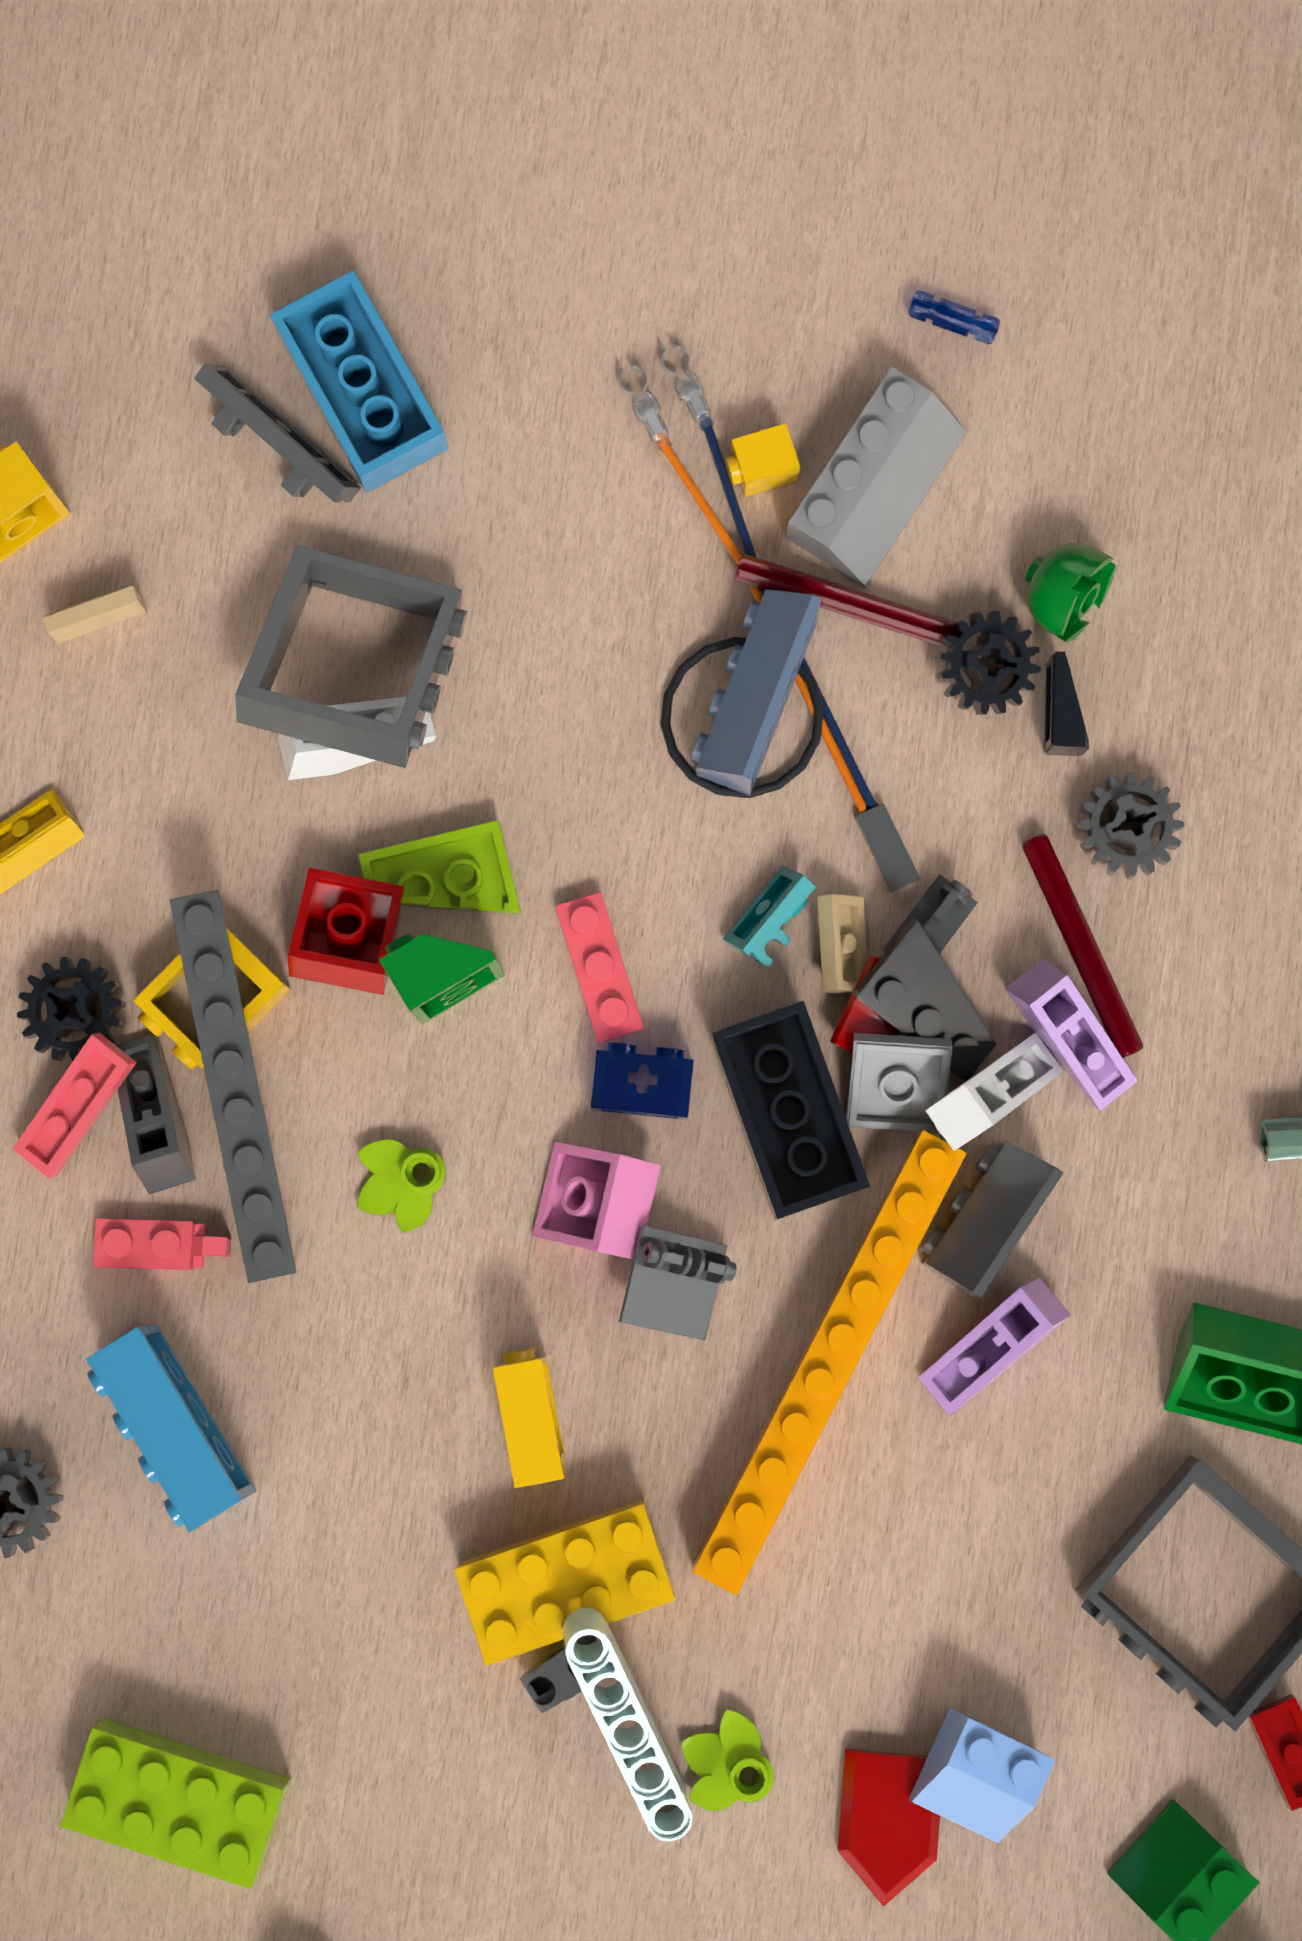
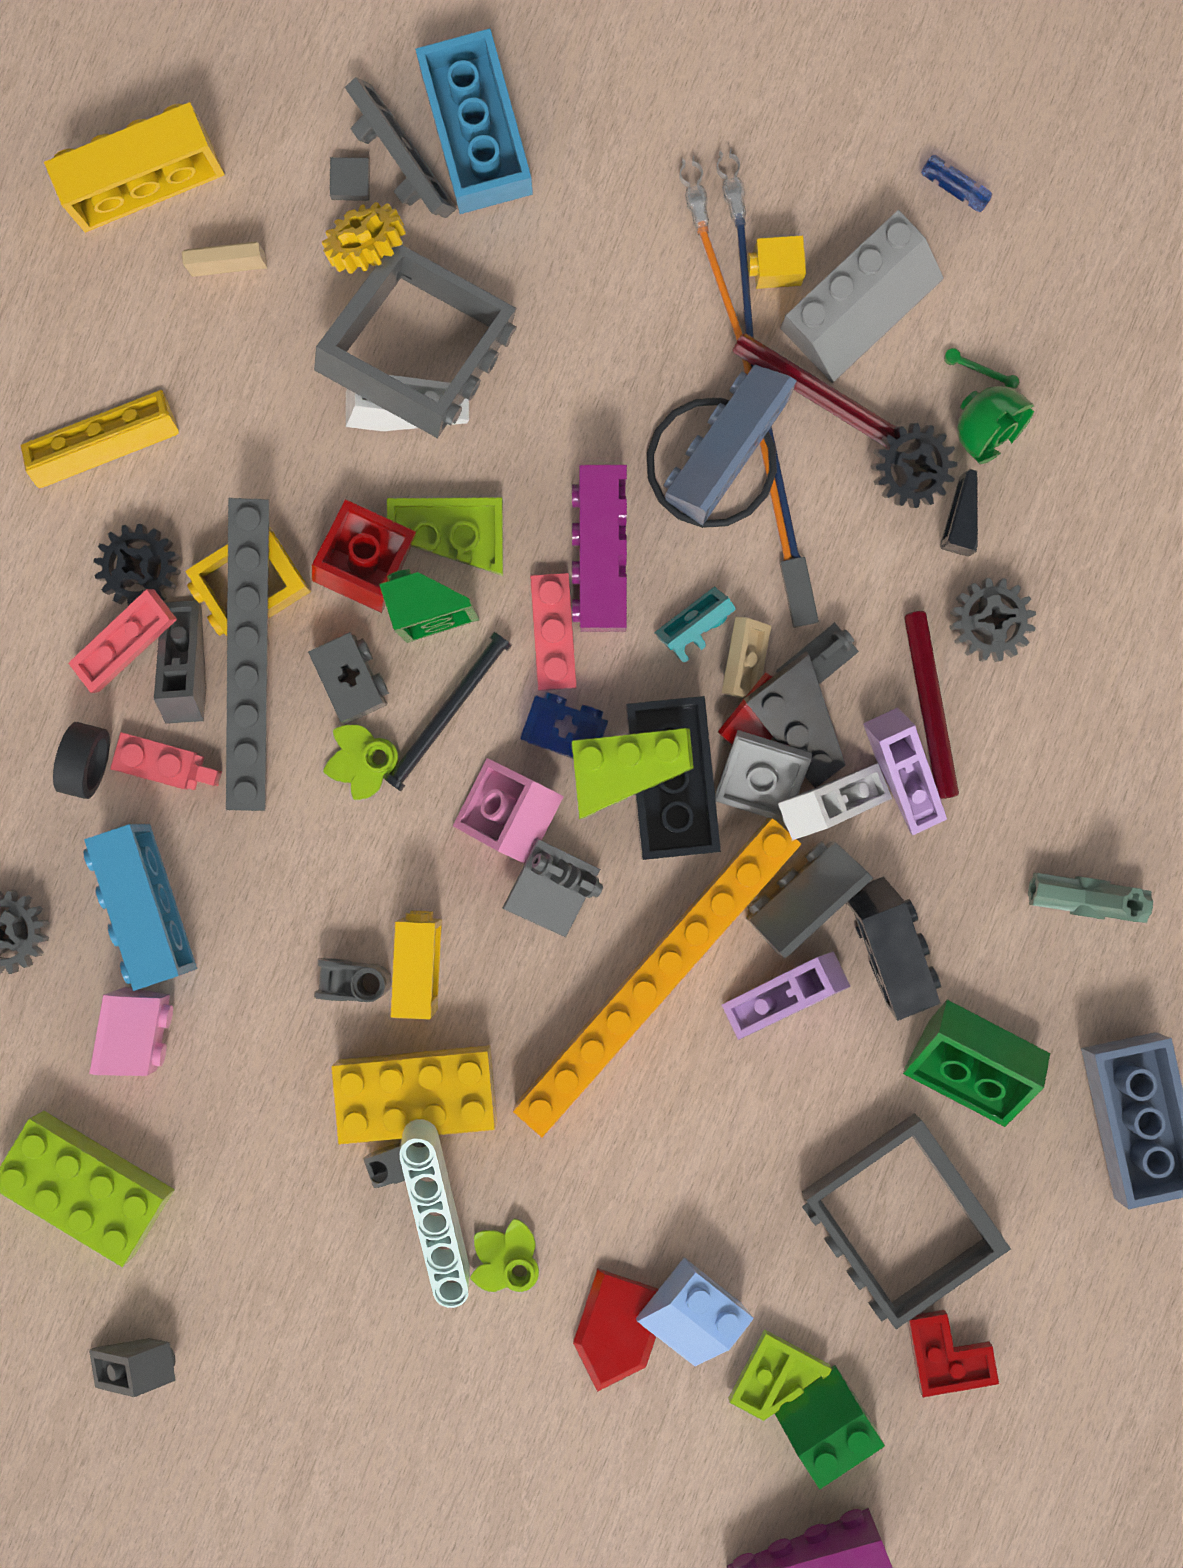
camera: 10 degrees right, 5 degrees up
(57, 1263) = (81, 760): none -> black tyre
(195, 1589) = (131, 1033): none -> bright pink slope
(223, 483) = (350, 179): none -> dark grey tile
(258, 549) = (363, 237): none -> yellow gear
(337, 1071) = (331, 665): none -> dark grey brick
(448, 1459) = (344, 980): none -> dark grey piece
(492, 1096) = (447, 711): none -> black bar
(634, 853) = (602, 548): none -> magenta wedge
(728, 1108) = (627, 764): none -> lime wing
(1002, 522) = (953, 357): none -> green hinge
(1100, 1830) = (775, 1376): none -> lime wing
(1113, 1255) = (895, 949): none -> black wedge

